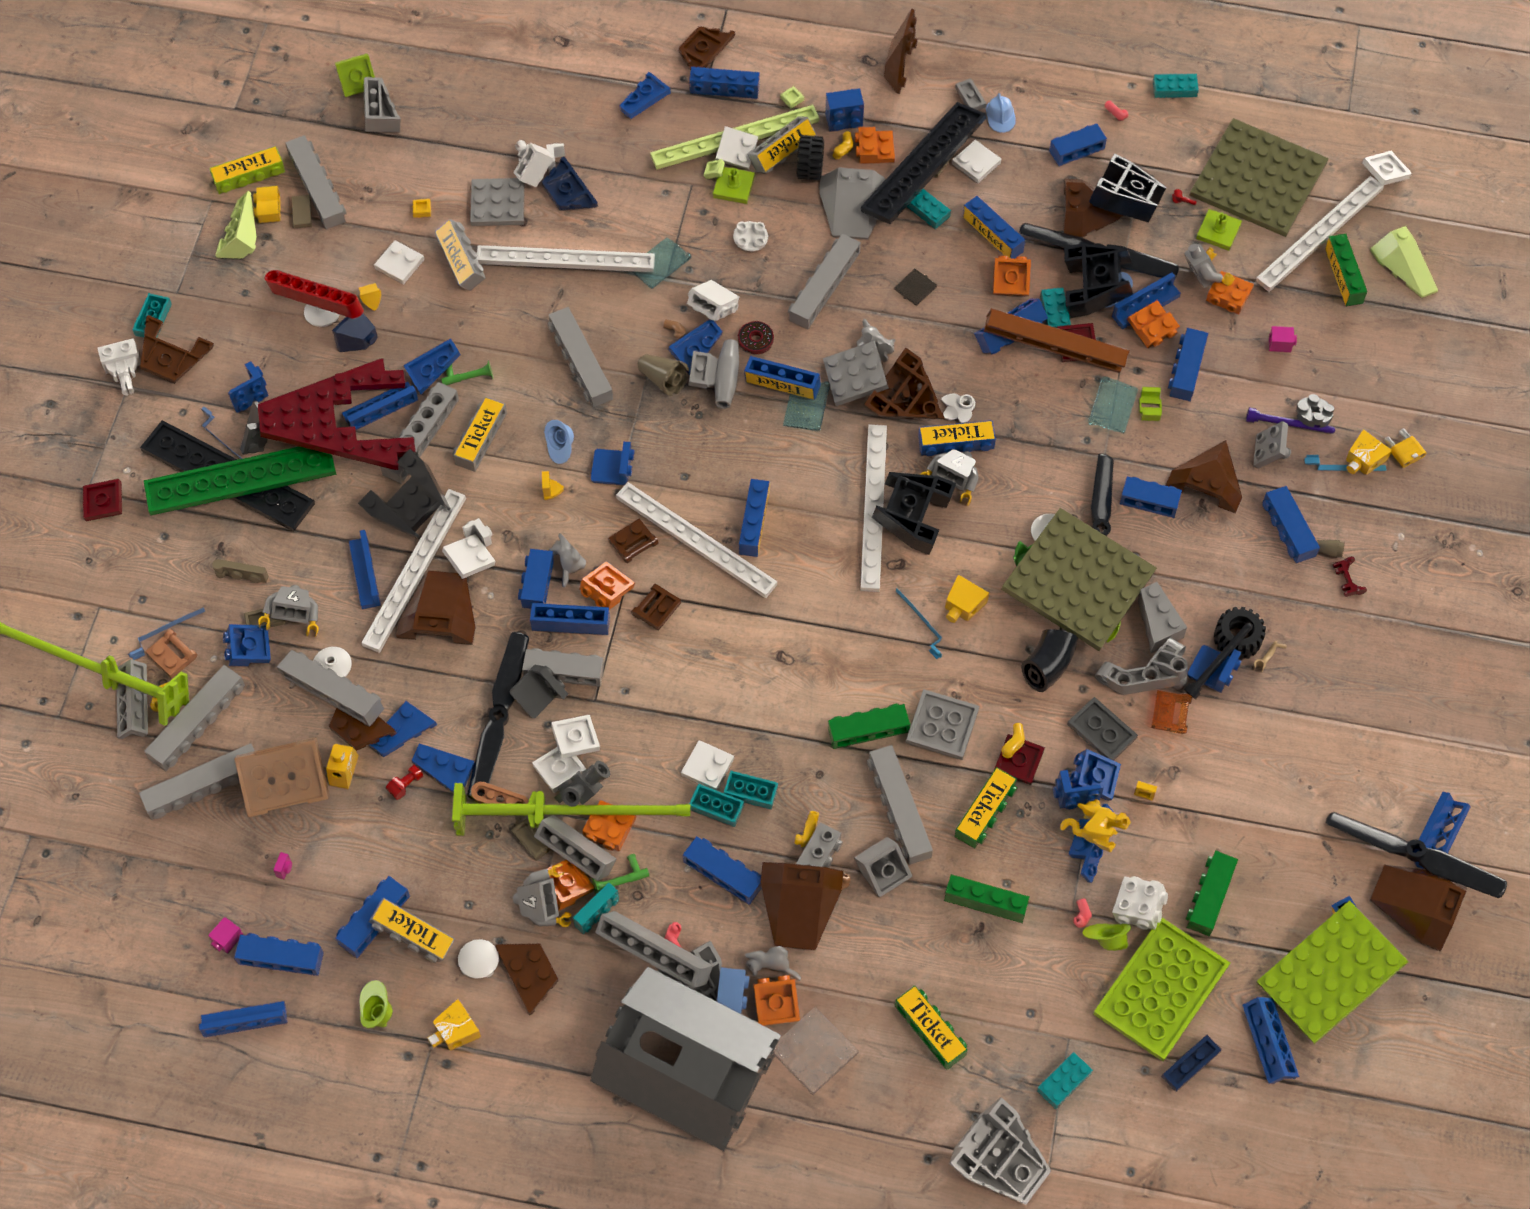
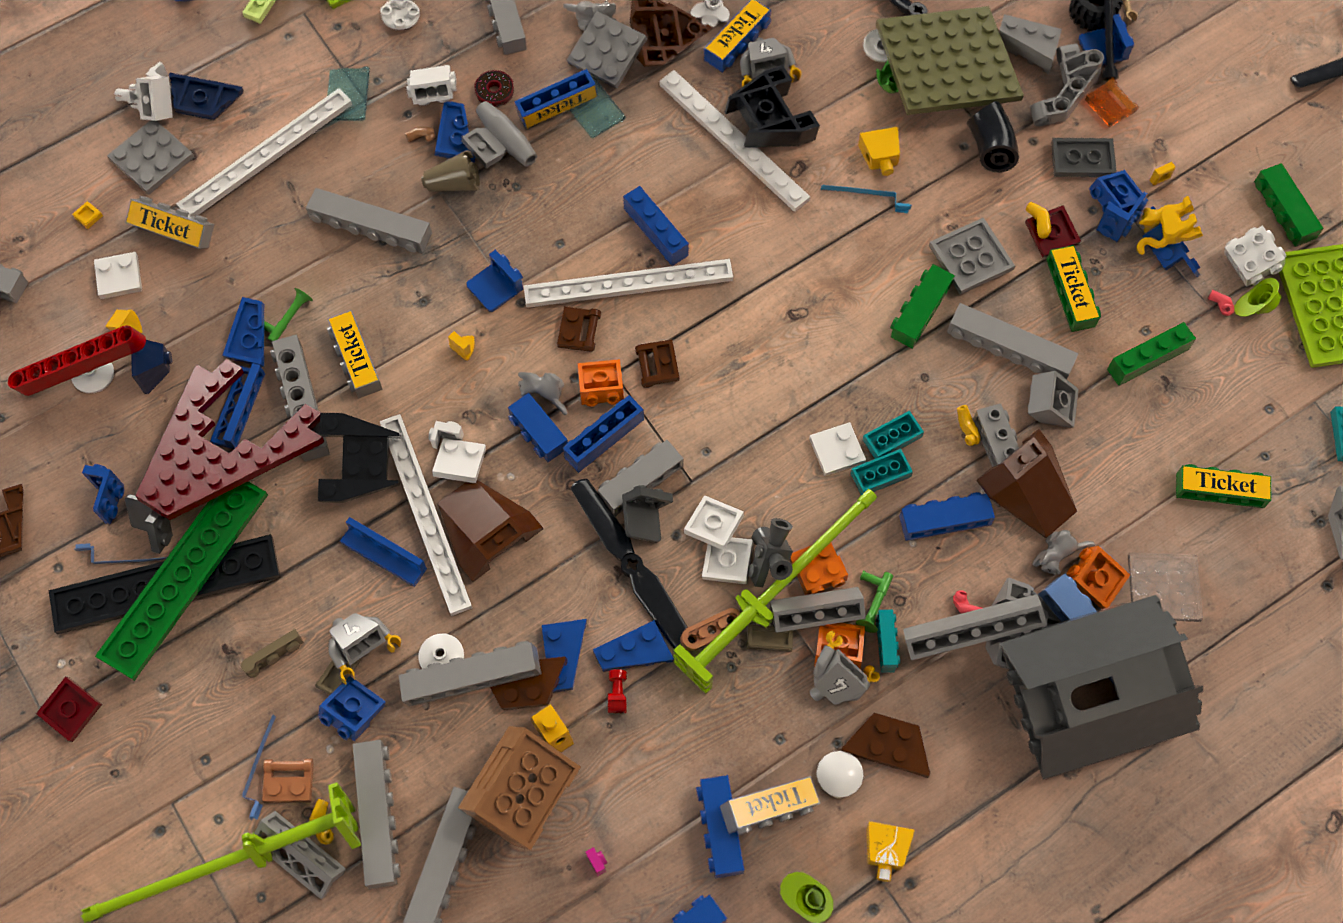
camera: 45 degrees left, 5 degrees up
(559, 441) = (430, 302): light blue piece -> none

